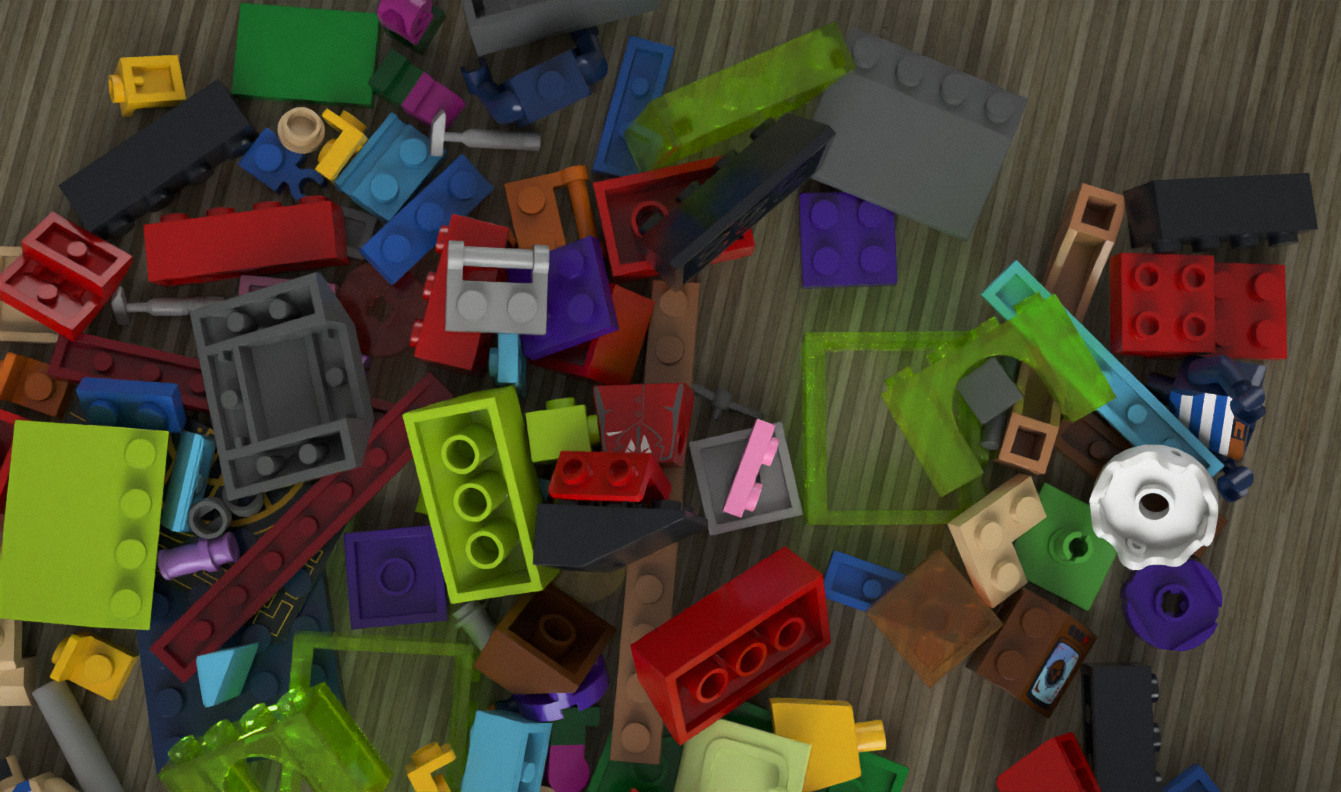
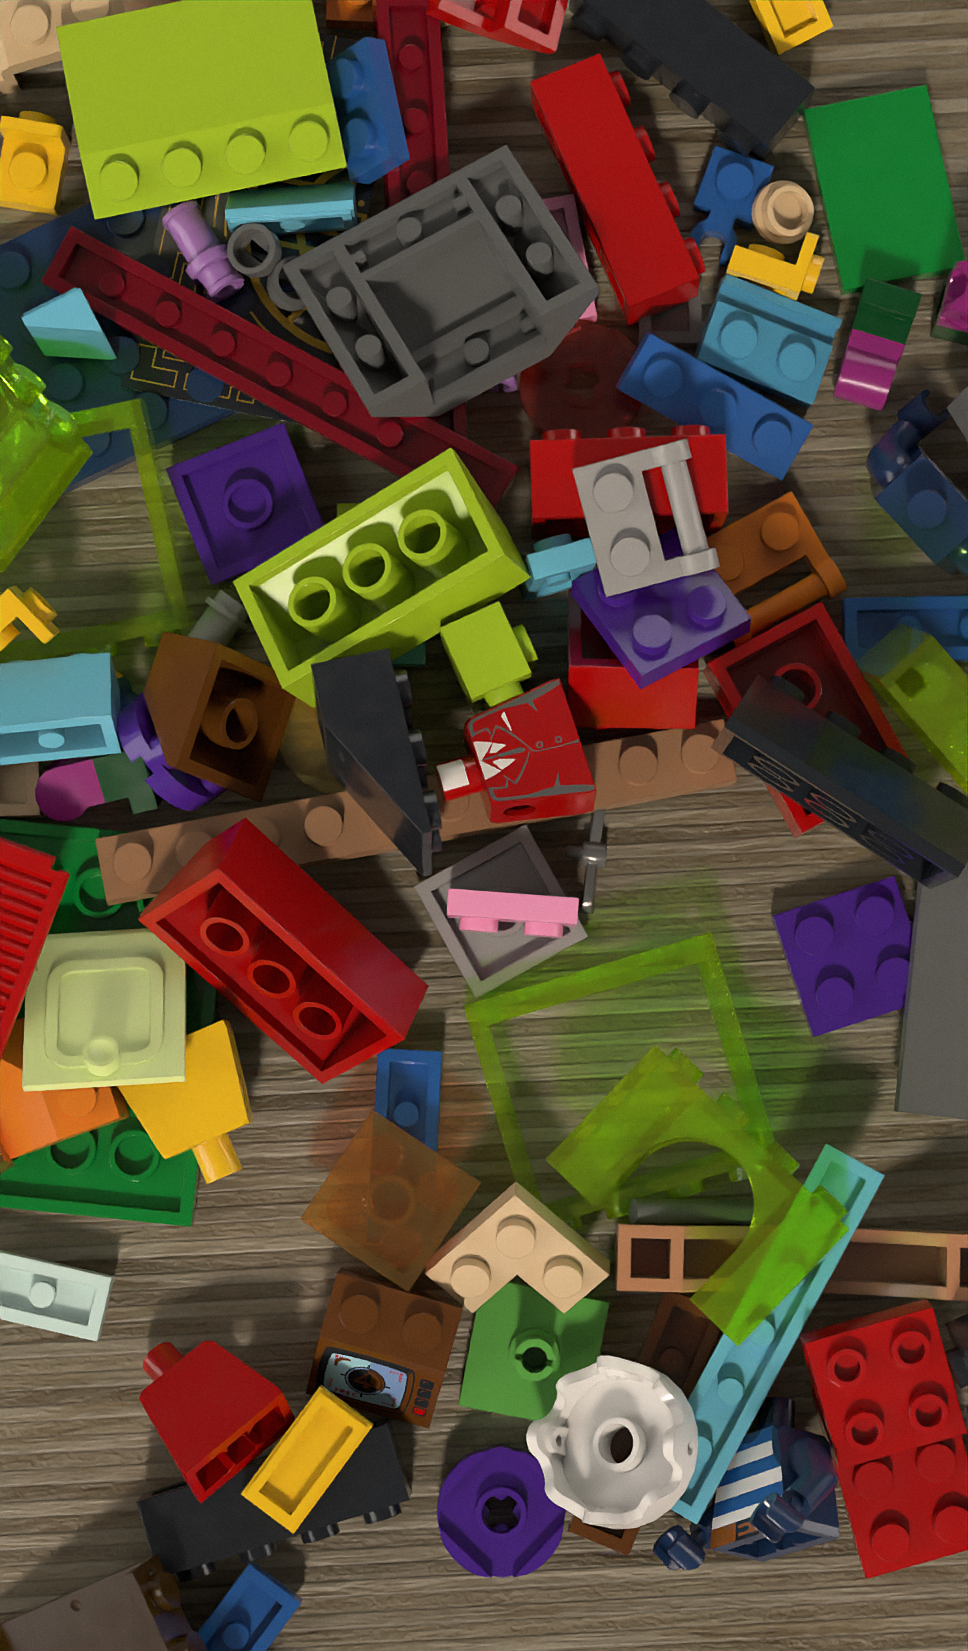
camera: 80 degrees right, 0 degrees up
(158, 306) = (504, 107): light grey piece -> none
(480, 138) = (841, 443): light grey piece -> none
(609, 477) = (446, 728): red bracket -> none
(989, 390) = (703, 1188): dark grey tile -> none
(1103, 732) = (307, 1459): none -> yellow tile

